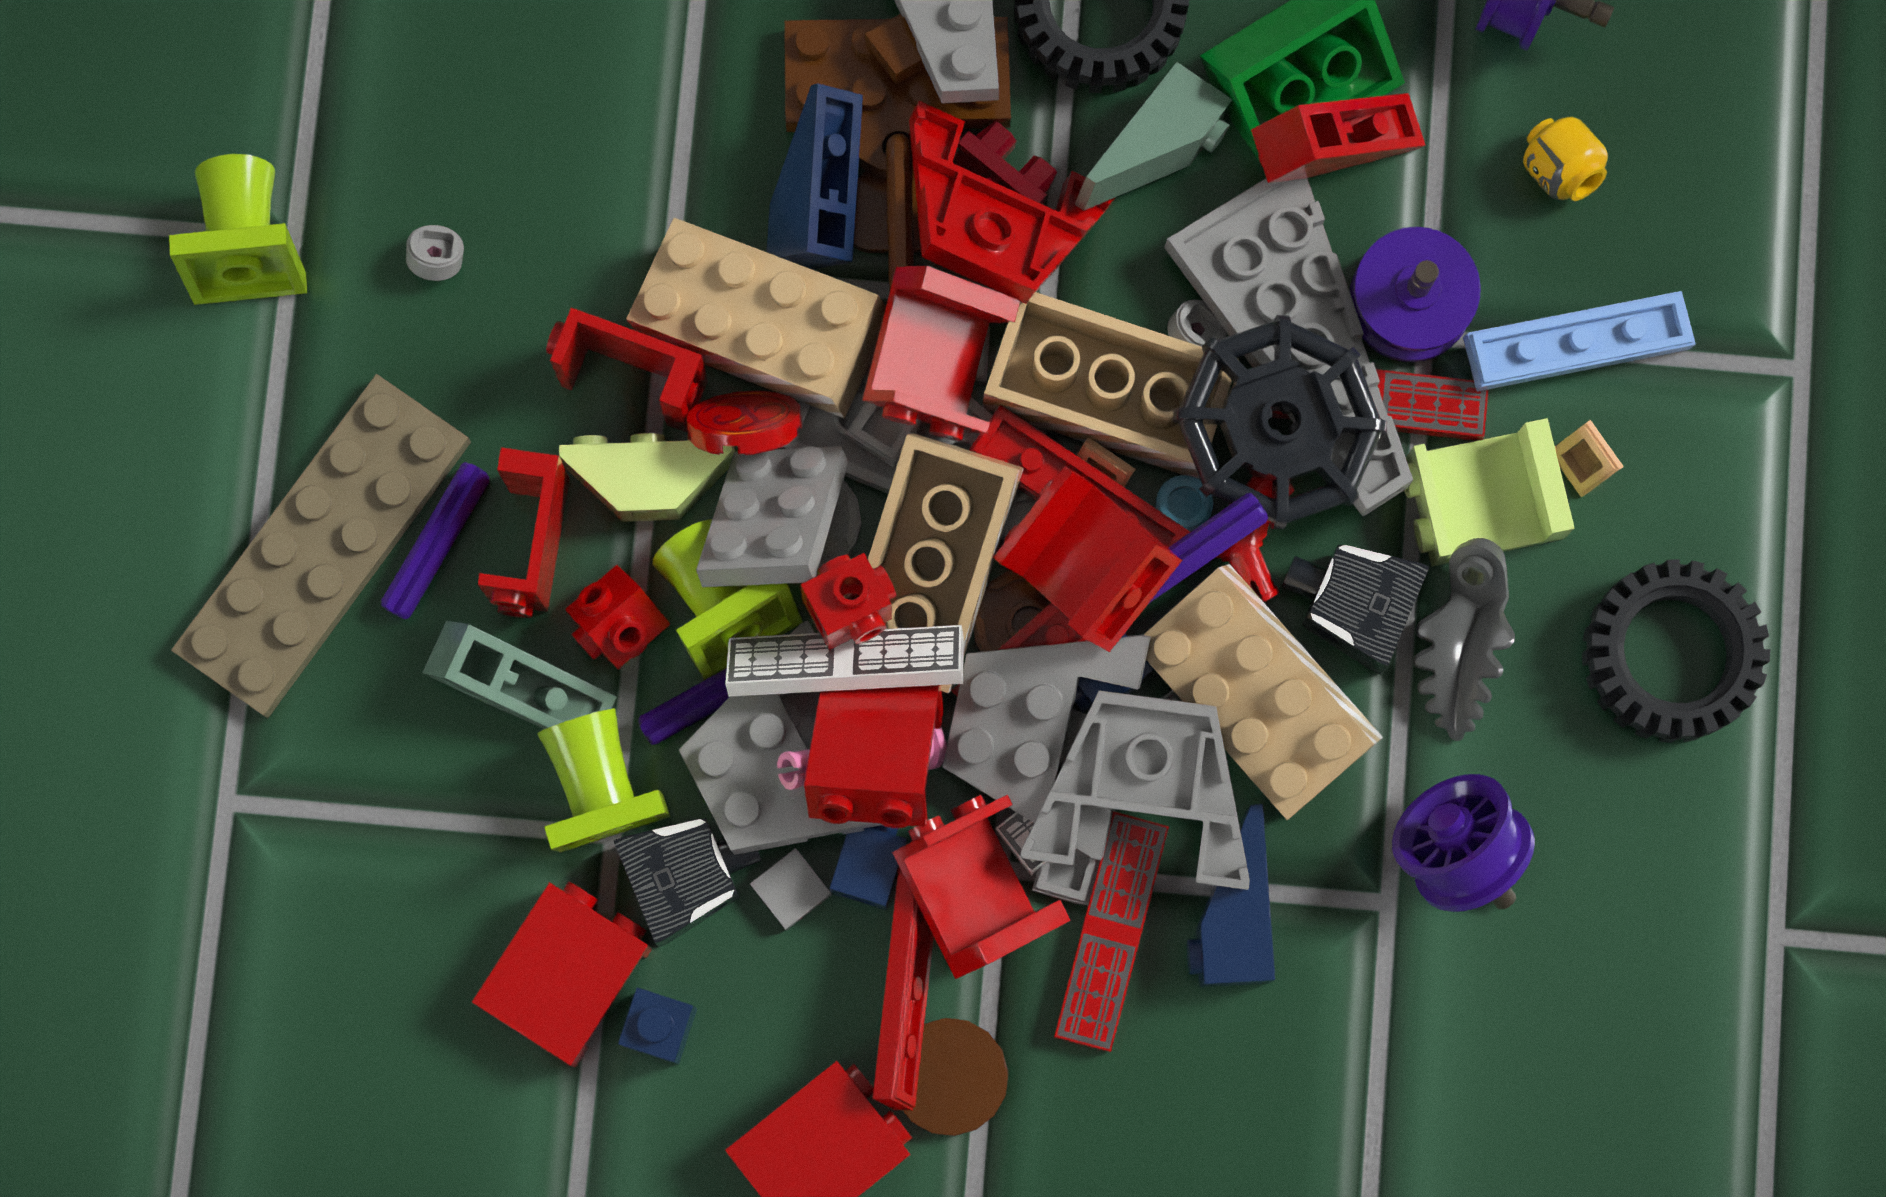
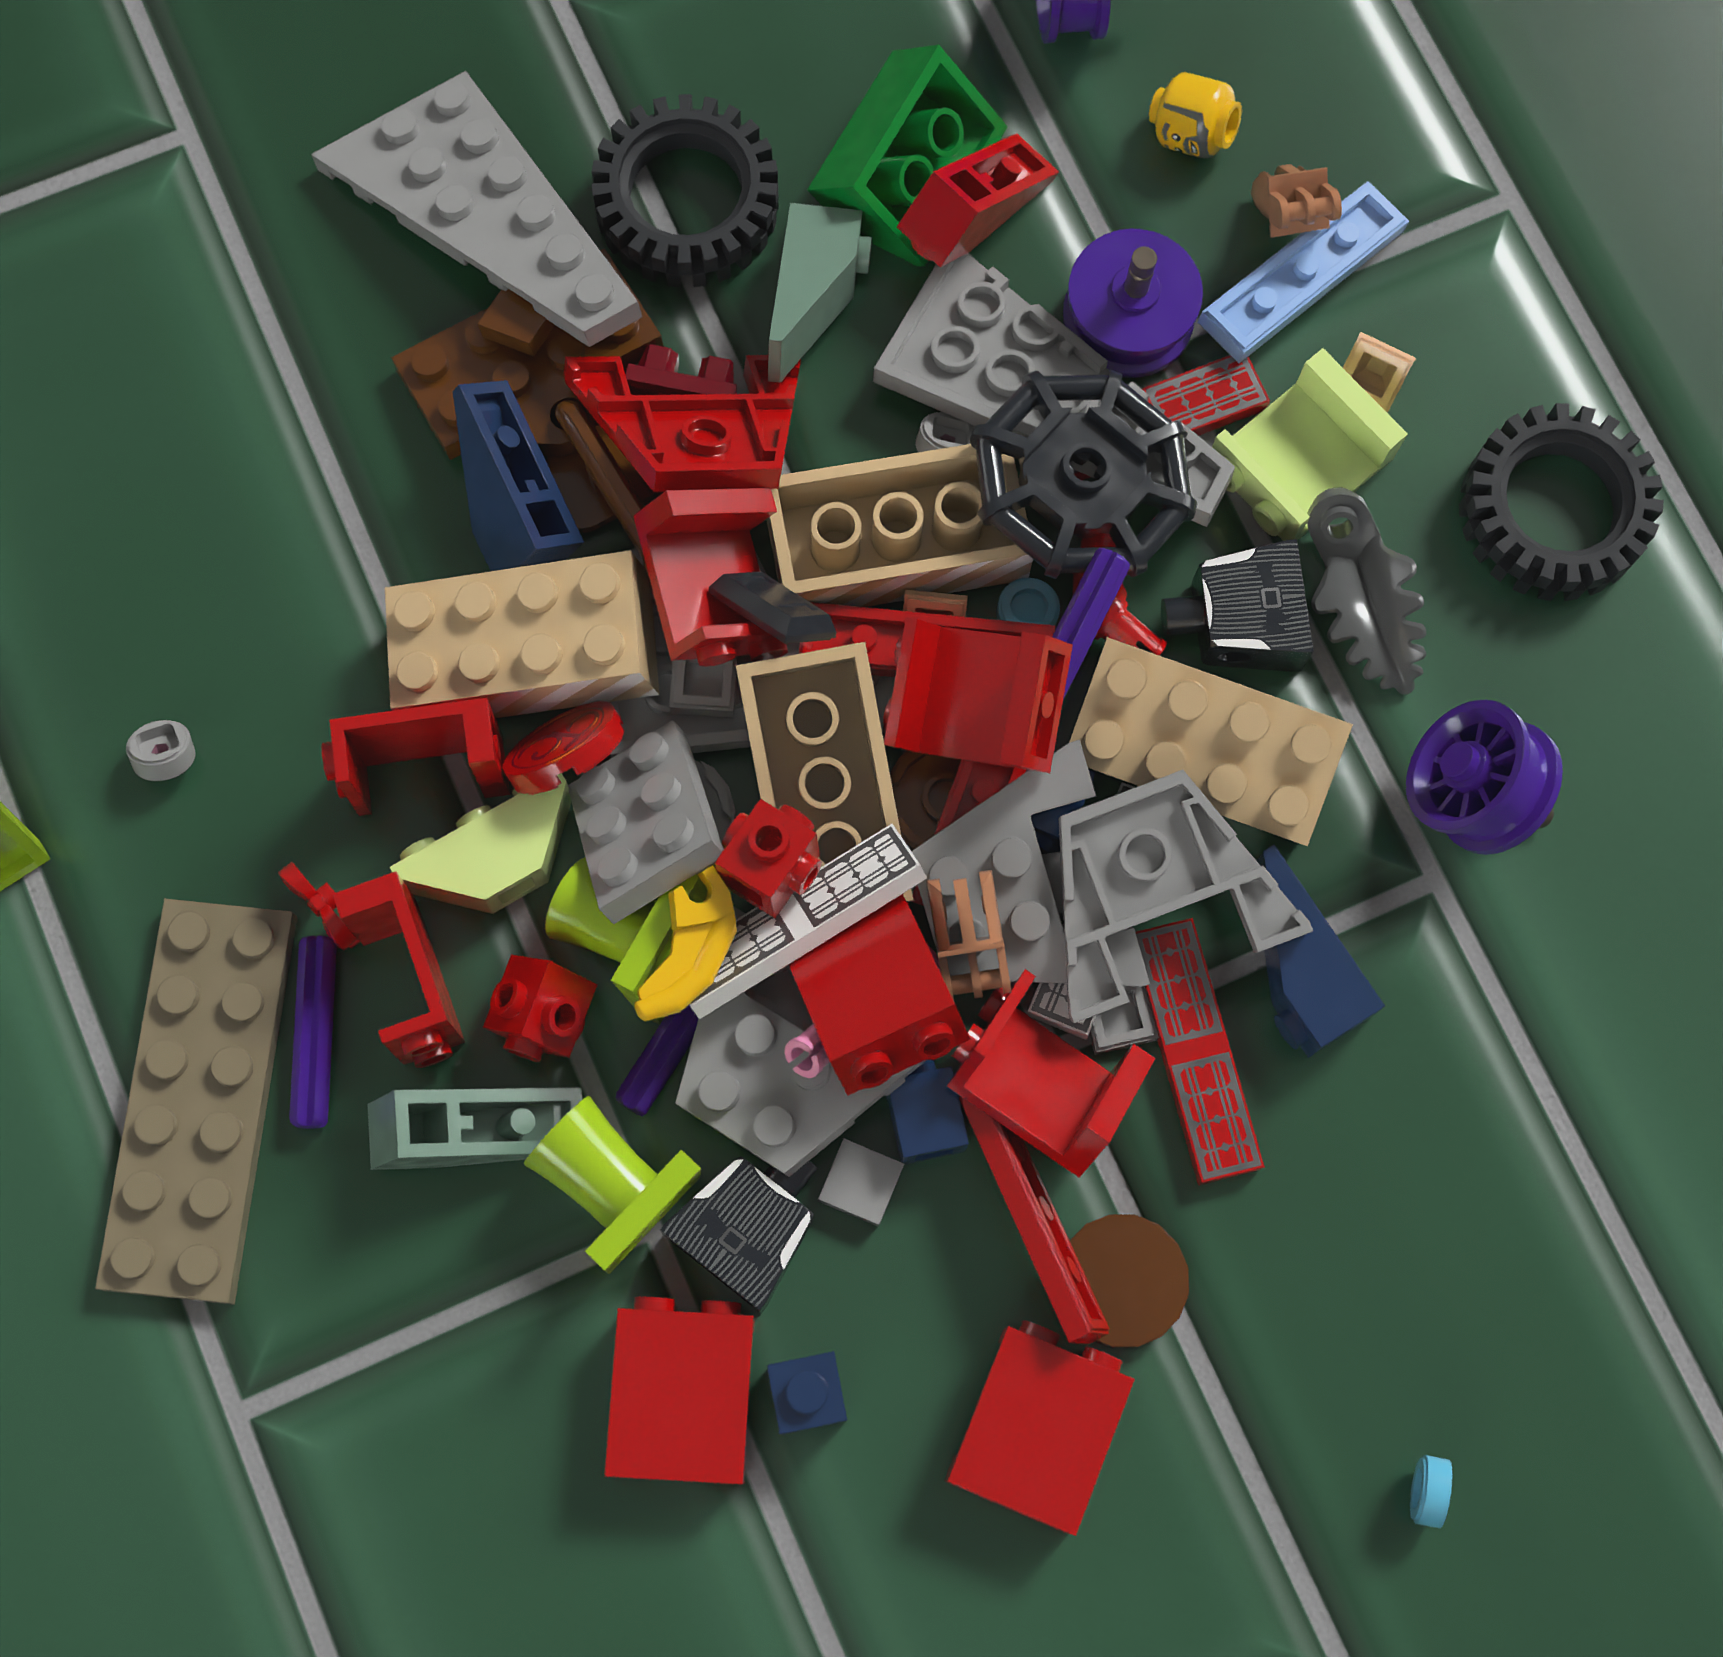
camera: 30 degrees left, 5 degrees down
(494, 440) = (321, 903): none -> red piece
(753, 644) = (697, 949): none -> yellow piece
(965, 401) = (773, 607): none -> black tile
(971, 749) = (976, 980): none -> nougat arm
(1602, 278) = (1296, 200): none -> nougat arm

